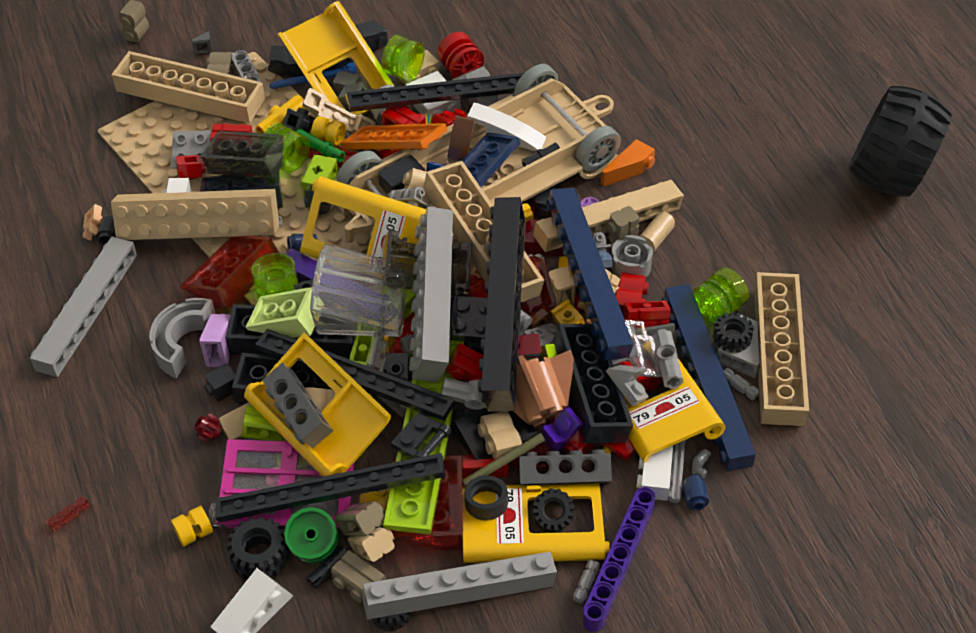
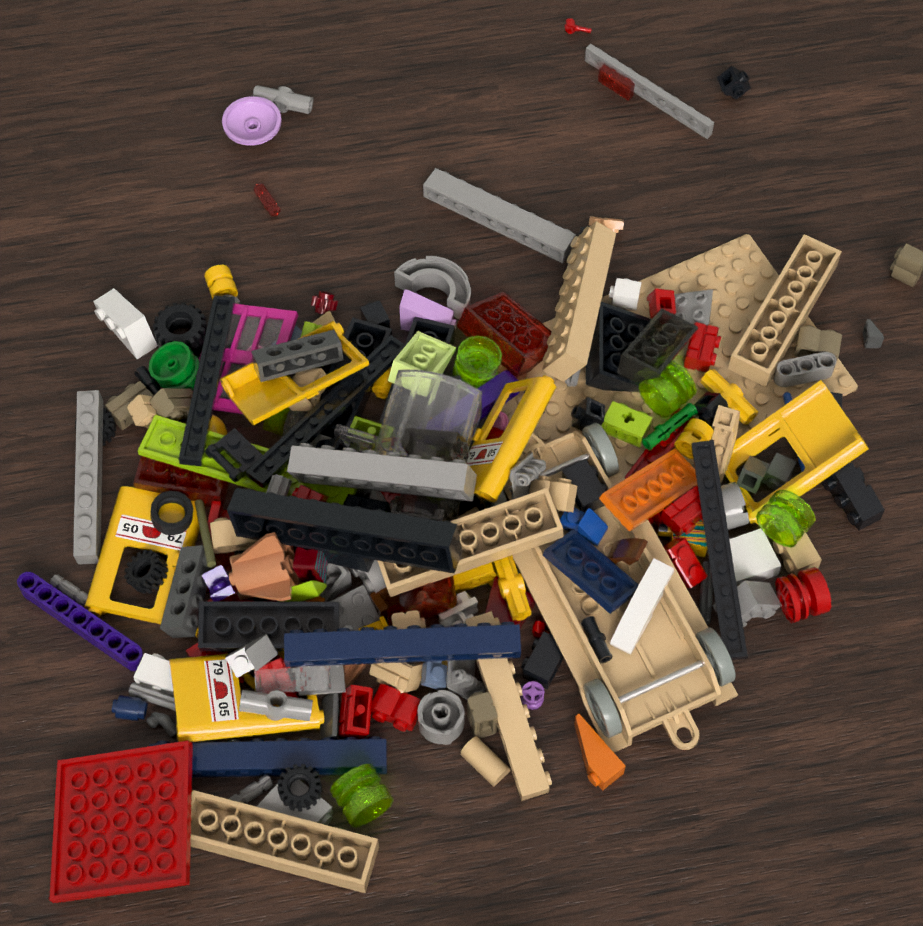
camera: 100 degrees right, 10 degrees up
(811, 461) = (122, 822): none -> red plate

